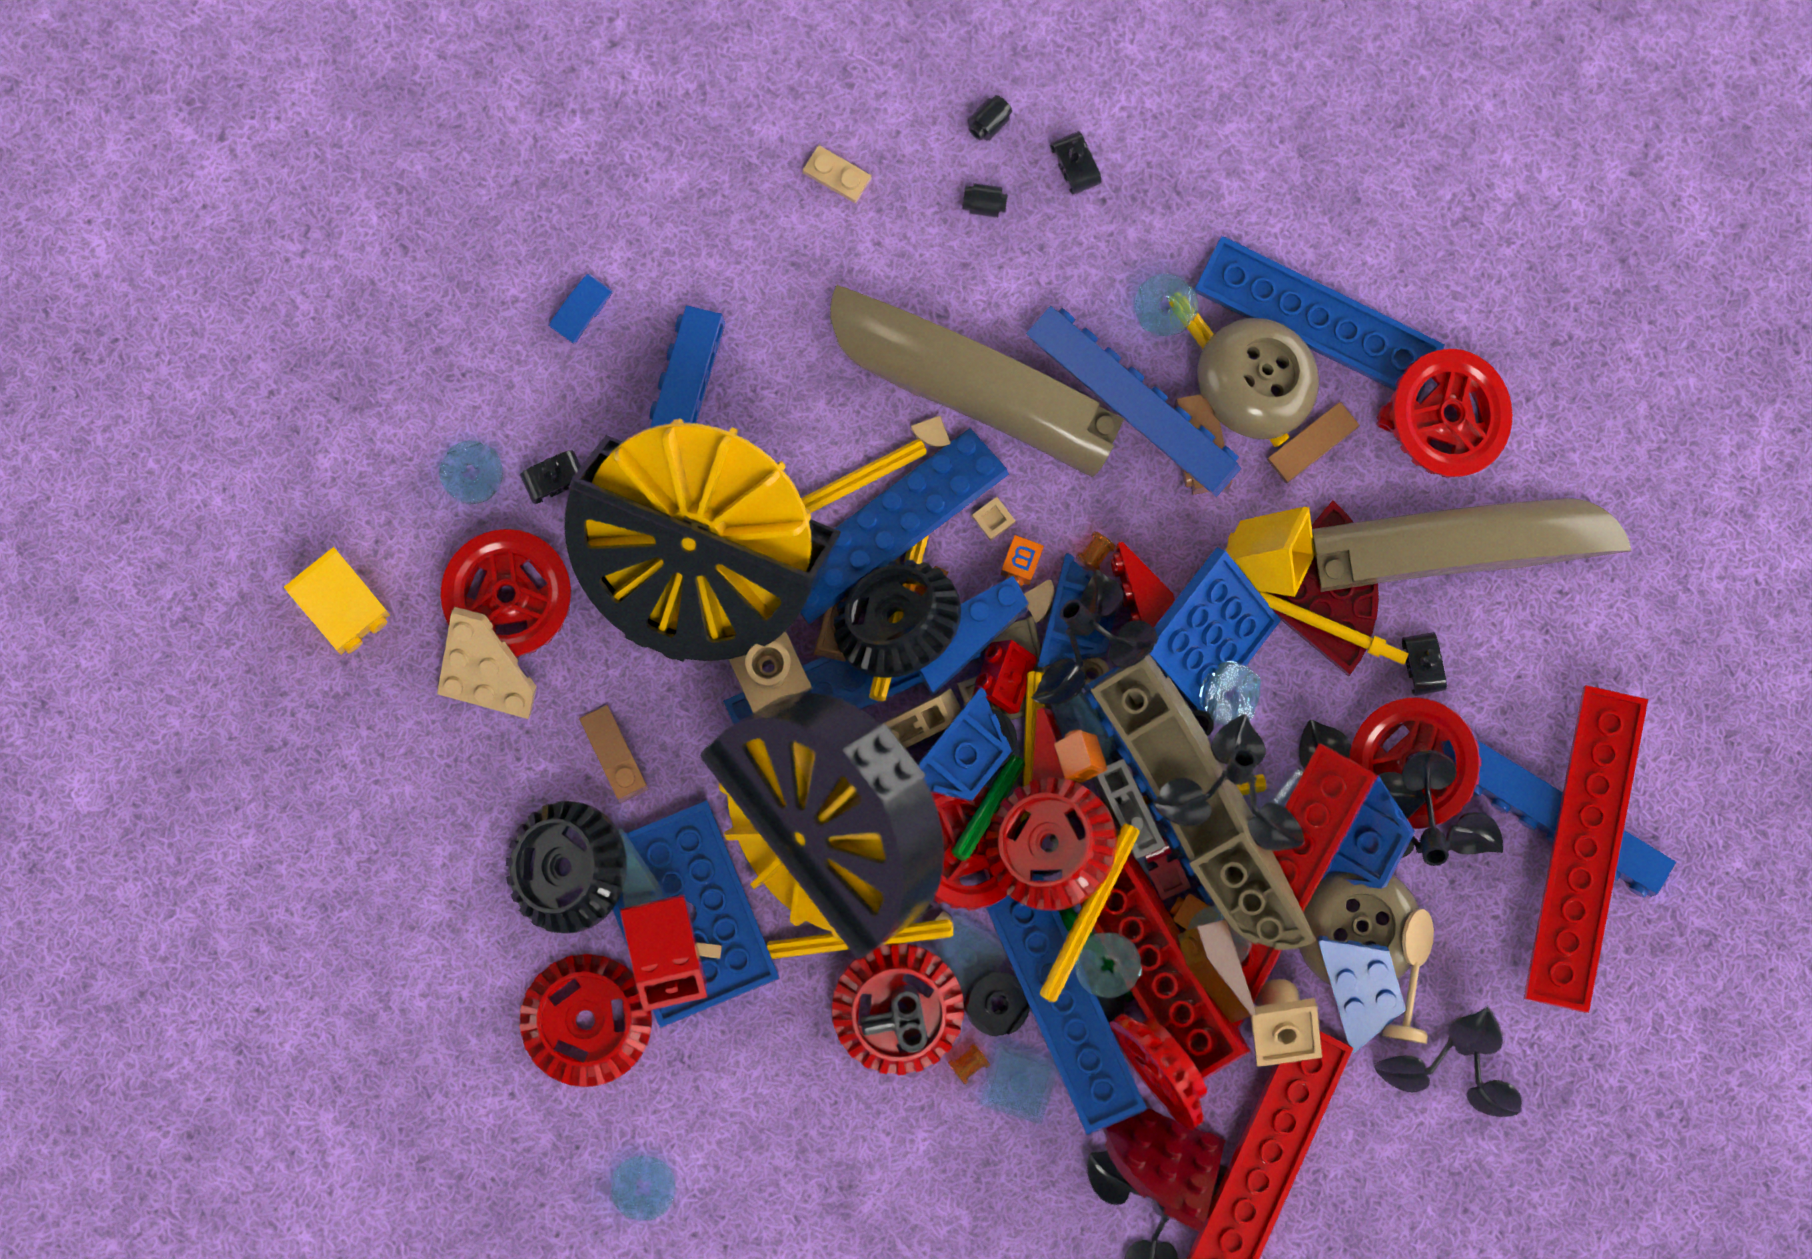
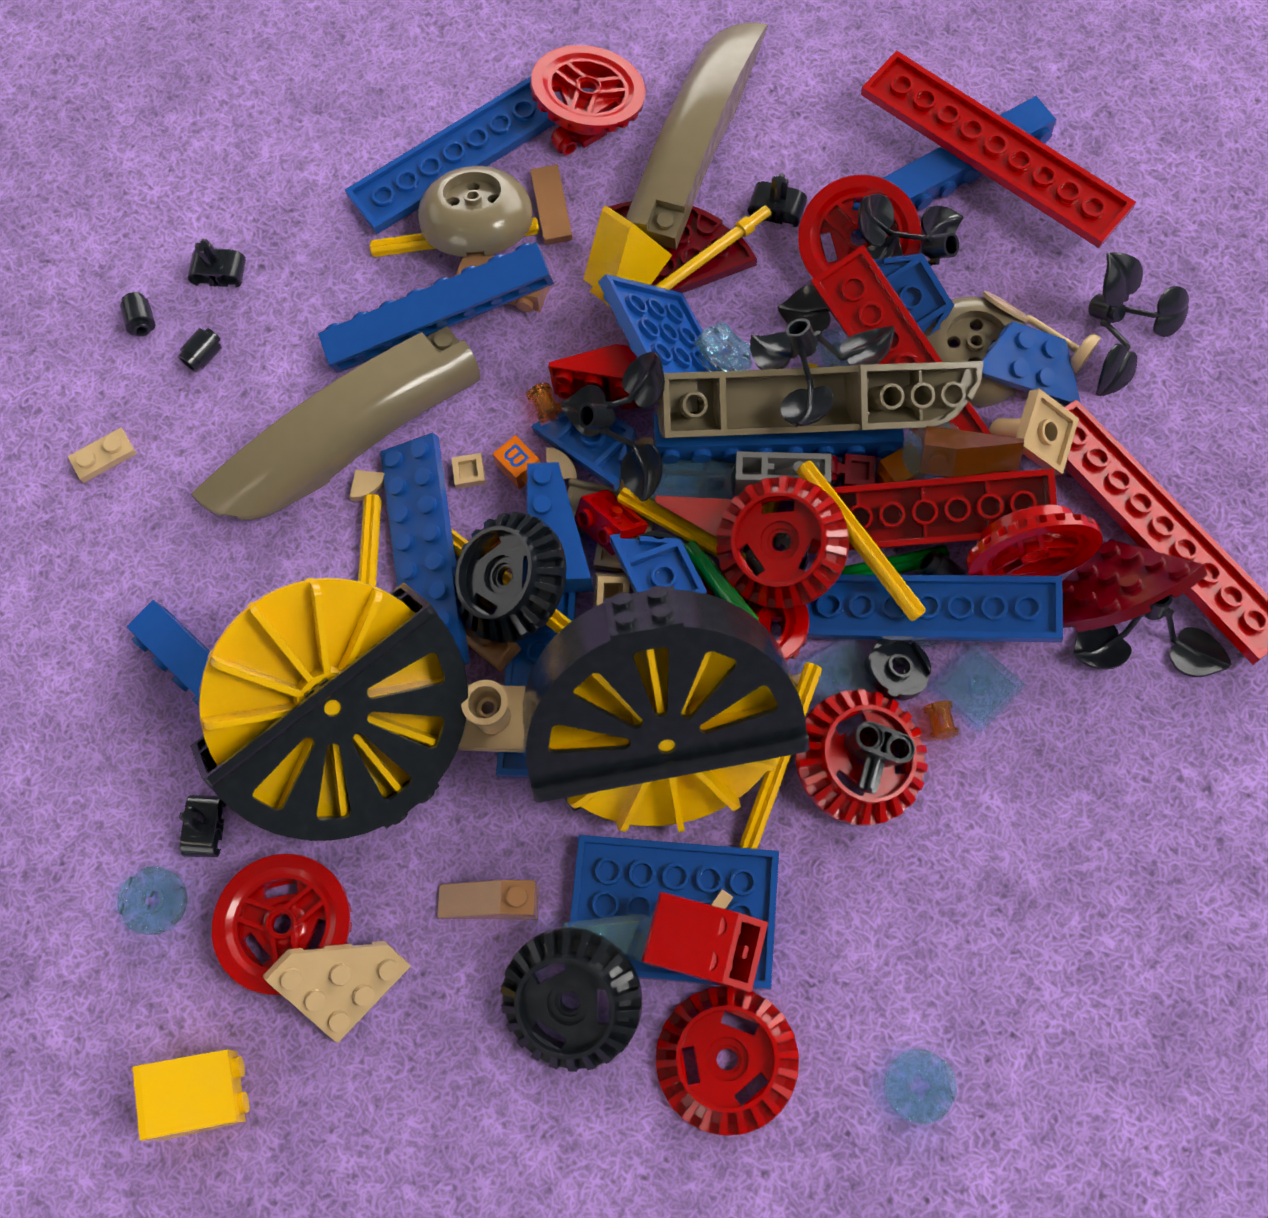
camera: 50 degrees left, 10 degrees down
(580, 308) = (71, 724): blue slope -> none
(1080, 756) = (715, 481): orange brick -> none
(1126, 967) = (926, 533): clear light blue plate -> none
(1178, 317) = (380, 269): clear light blue plate -> none

